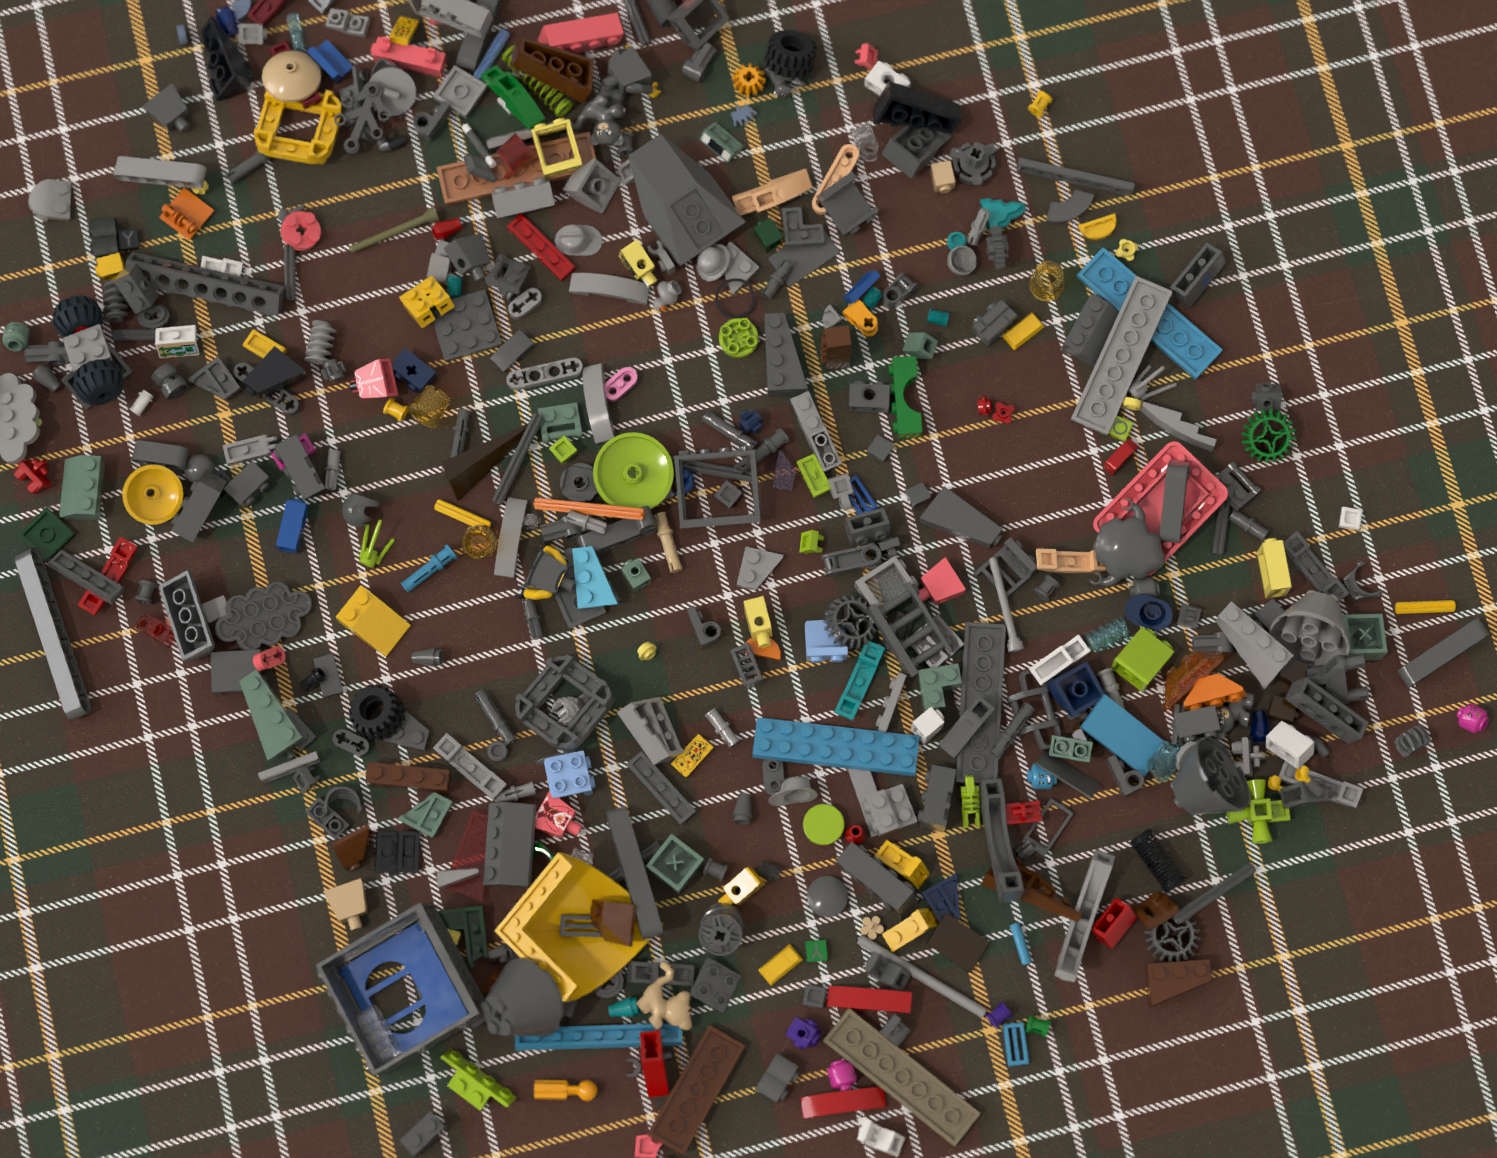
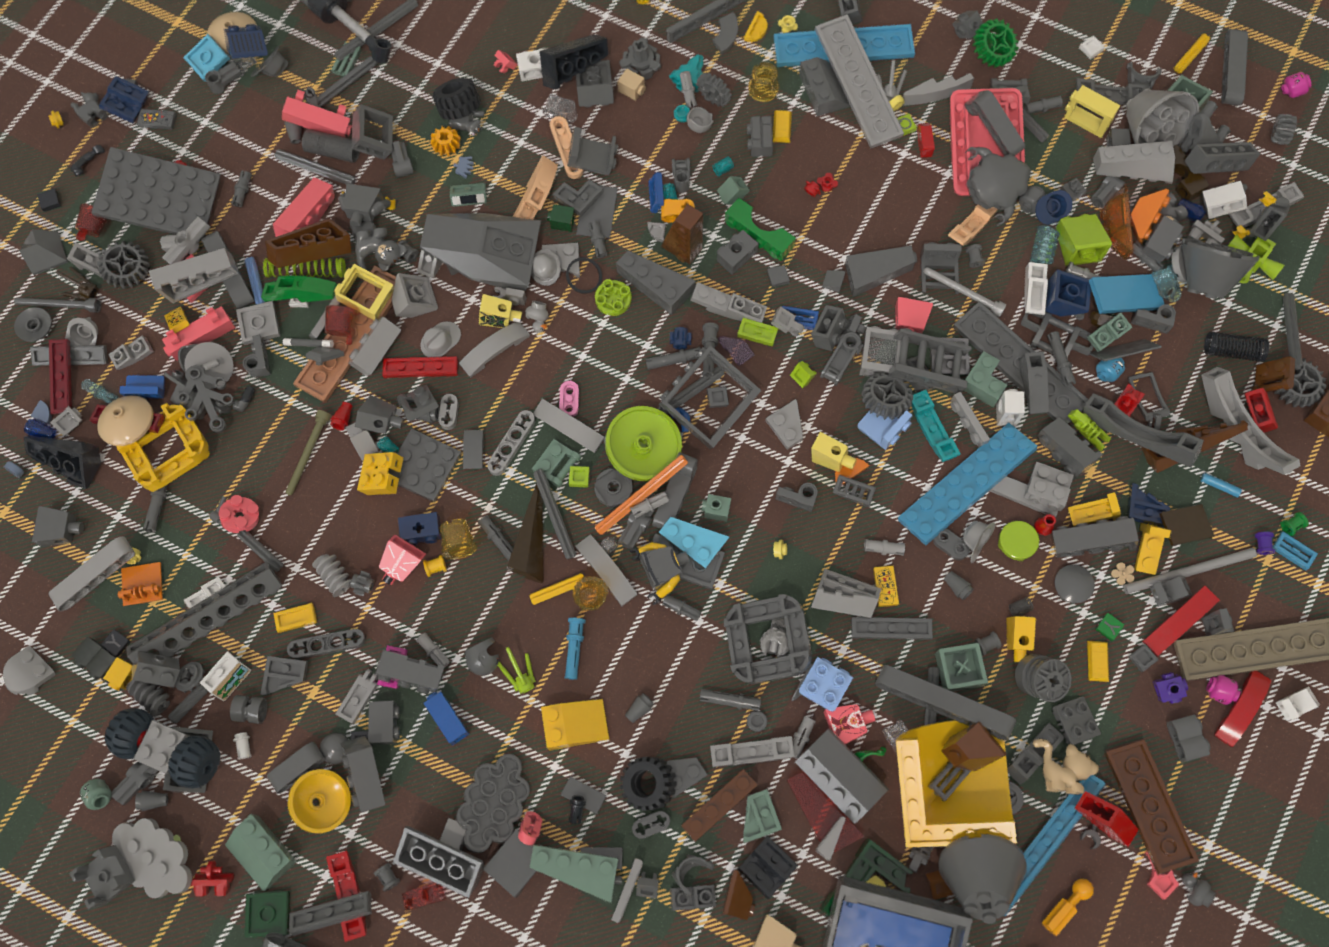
camera: 45 degrees left, 5 degrees down
(273, 374) = (321, 628): black slope -> none
(624, 1008) = (1040, 802): teal cone -> none
(669, 547) = (715, 467): tan pin -> none

